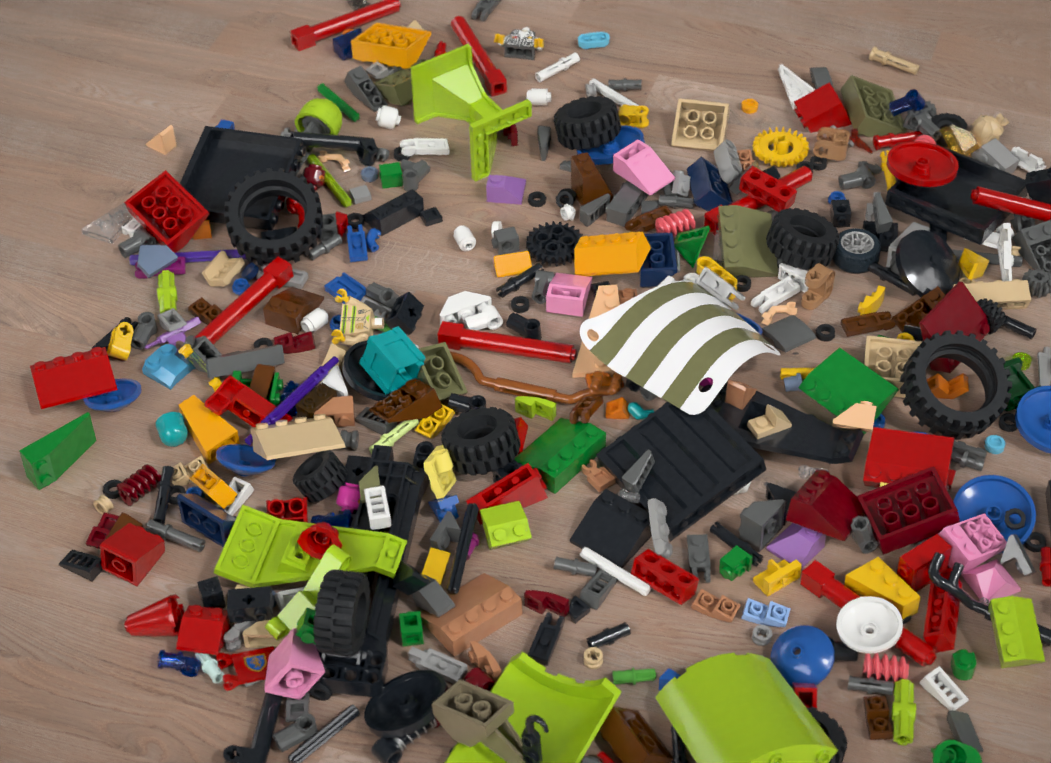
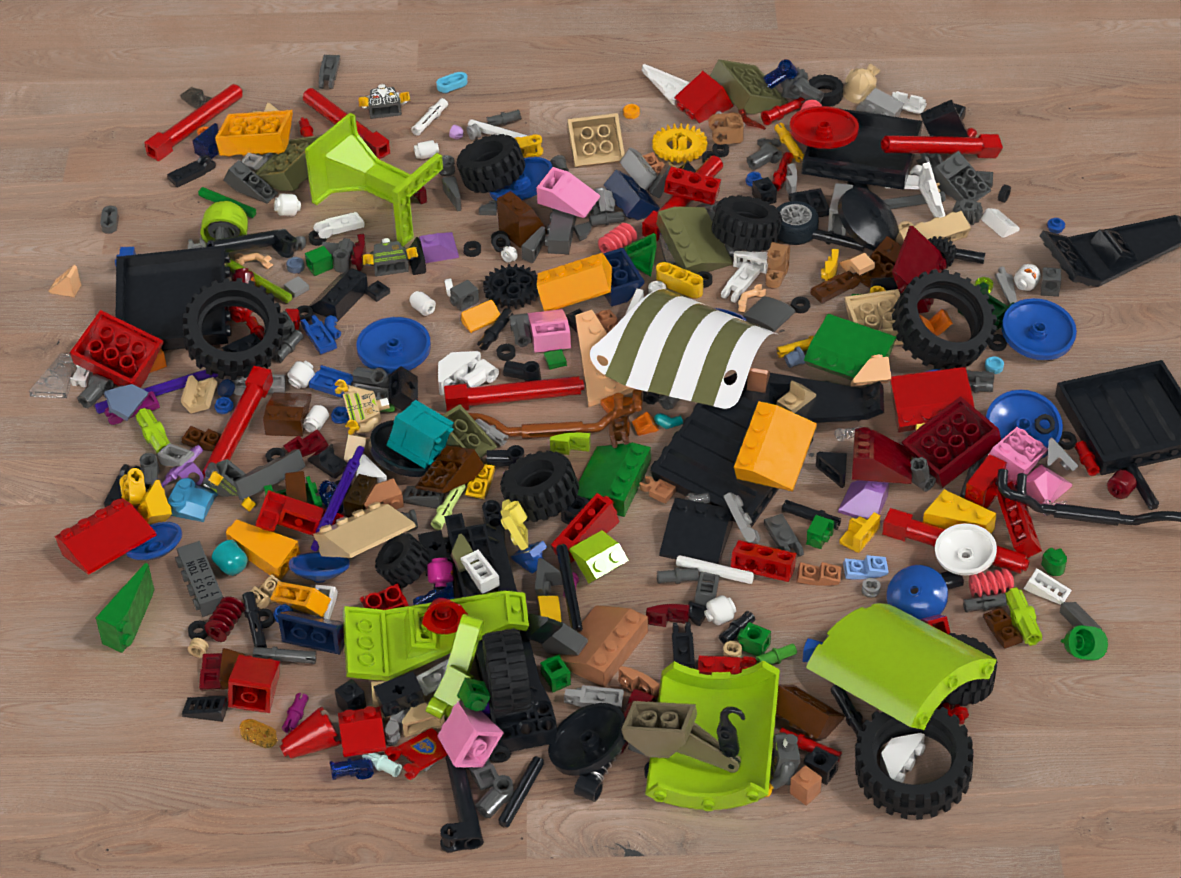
camera: 20 degrees left, 0 degrees up
(119, 600) = (258, 733): none -> clear yellow beam
(129, 362) = (154, 505): none -> yellow slope
(137, 439) = (200, 578): none -> dark grey brick
(158, 592) = (295, 712): none -> magenta pin
(229, 93) = (106, 219): none -> dark grey beam
(305, 362) = (328, 461): none -> black slope
(321, 275) = (300, 374): none -> white head
(322, 66) = (191, 171): none -> black hinge
(417, 270) = (393, 344): none -> blue dish
(431, 177) = (359, 250): none -> dark red slope
(453, 188) = (389, 258): none -> dark grey torso
(468, 377) = (492, 432): none -> light grey axle
(480, 197) = (418, 263): none -> black slope
(548, 115) = (448, 166): none -> dark grey wheel
(562, 323) = (555, 359): none -> green tile
(574, 87) = (456, 132): none -> lavender hinge
(577, 669) = (711, 664): none -> red hinge
(598, 613) = (720, 610): none -> white head
(619, 653) = (754, 639): none -> green brick
(636, 475) = (699, 477): dark grey slope -> none
(647, 220) = (588, 243): reddish brown hinge -> none
(655, 140) = (559, 162): none -> dark grey piece
(718, 287) = (688, 287): light grey hinge -> none
(718, 465) = (774, 447): none -> light orange slope
(761, 522) = (827, 488): dark grey slope -> none
(820, 76) = (686, 68): dark grey slope -> none
(858, 207) = (779, 176): none -> red pin
(881, 214) = (805, 183): dark grey slope -> none
(886, 57) = (766, 40): tan pin -> none
(900, 307) = (858, 263): none -> light nougat slope
(959, 139) = (842, 97): clear yellow slope -> none
(972, 264) = (903, 208): yellow slope -> none
(1016, 631) = (1087, 520): lime slope -> none

